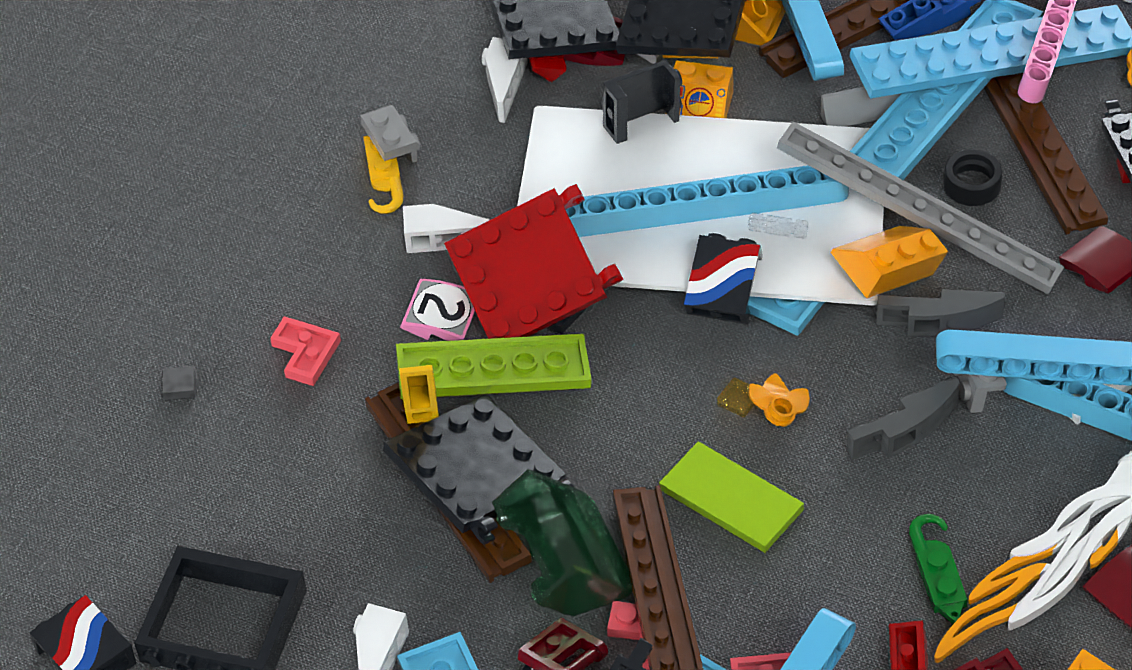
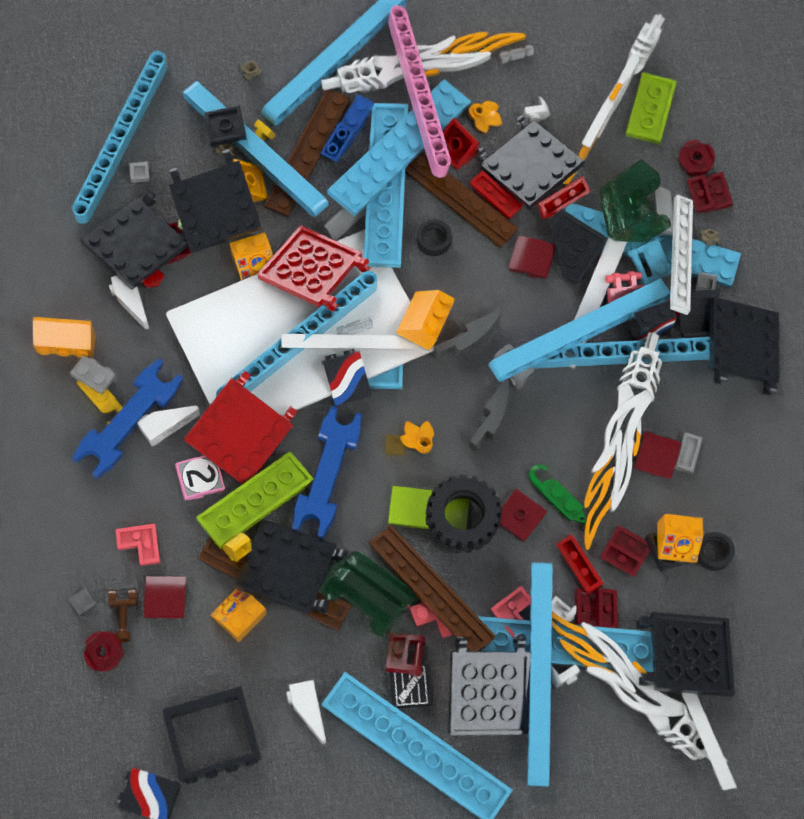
camera: 40 degrees left, 20 degrees up
(158, 445) = (113, 648): none -> dark red plate
(198, 442) = (123, 635): none -> reddish brown bar
(287, 426) = (165, 597): none -> dark red slope
(349, 216) = (106, 443): none -> blue piece
(371, 496) = (239, 614): none -> light orange slope
(384, 74) = (63, 337): none -> light orange slope
(578, 413) = (317, 504): none -> blue piece
(640, 94) = (220, 292): black panel -> none
(751, 125) = (311, 267): none -> plate
(761, 235) = (348, 341): none -> white sticker
(774, 475) = (470, 489): none -> black tyre
(862, 567) = (521, 515): none -> dark red plate
(920, 207) = (424, 279): light grey plate -> none
(1083, 83) = (460, 144): none -> red slope
(1100, 165) = (495, 195): none -> red plate

